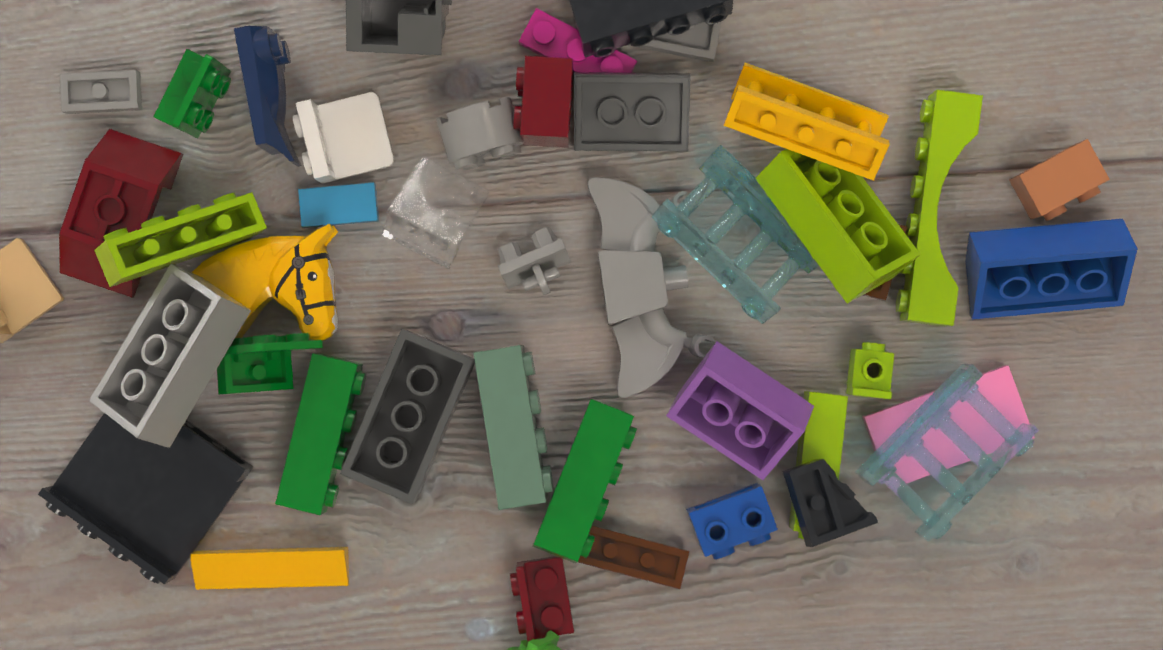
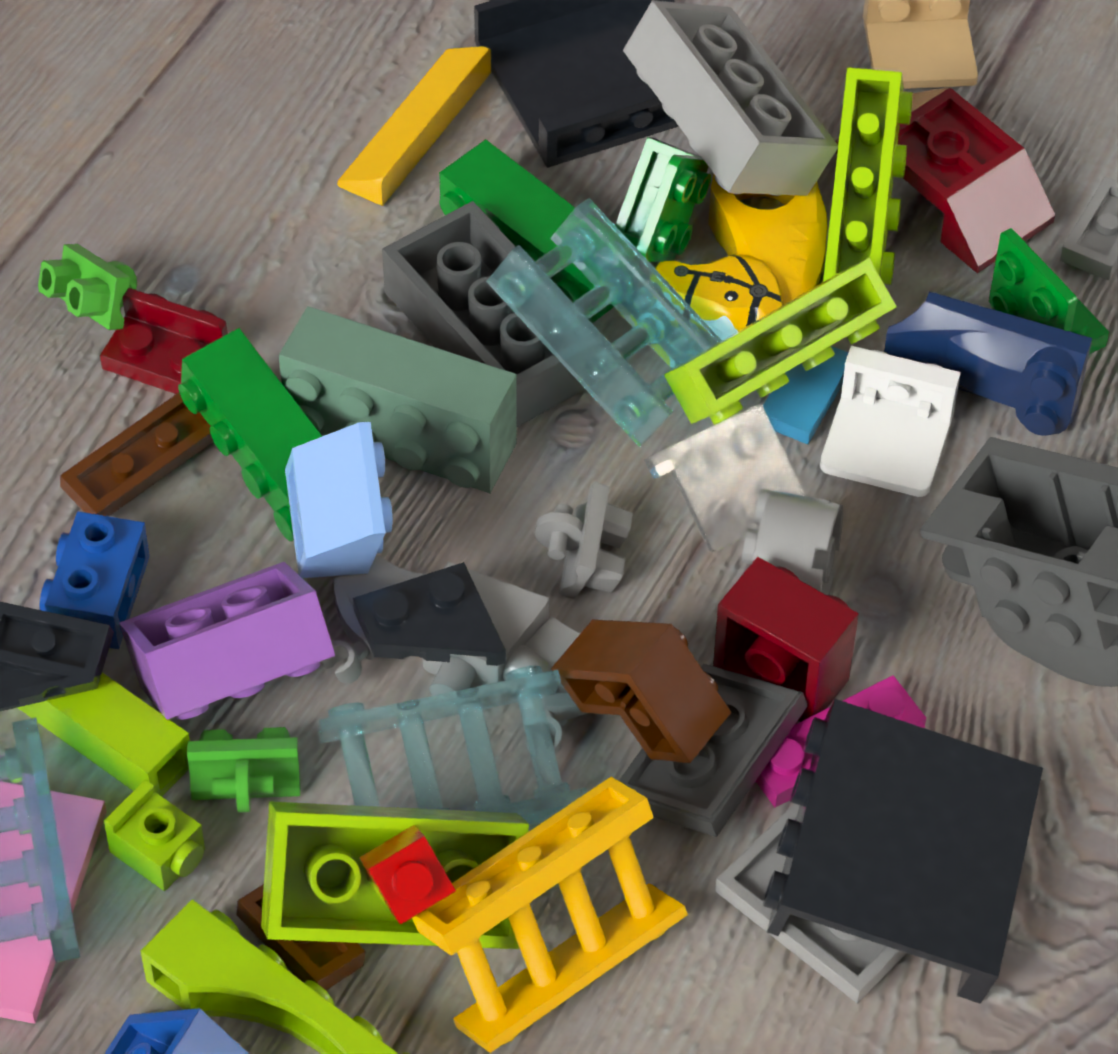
camera: 115 degrees right, 35 degrees down
(343, 215) = (780, 341): none -> lime brick
(357, 306) = (634, 290): none -> clear light blue fence
(627, 399) = (338, 502): none -> light blue slope
(636, 152) = (648, 681): none -> reddish brown brick
(658, 304) = (430, 619): none -> black wing
(808, 369) = (244, 766): none -> bright green hips
(859, 191) = (407, 874): none -> red brick

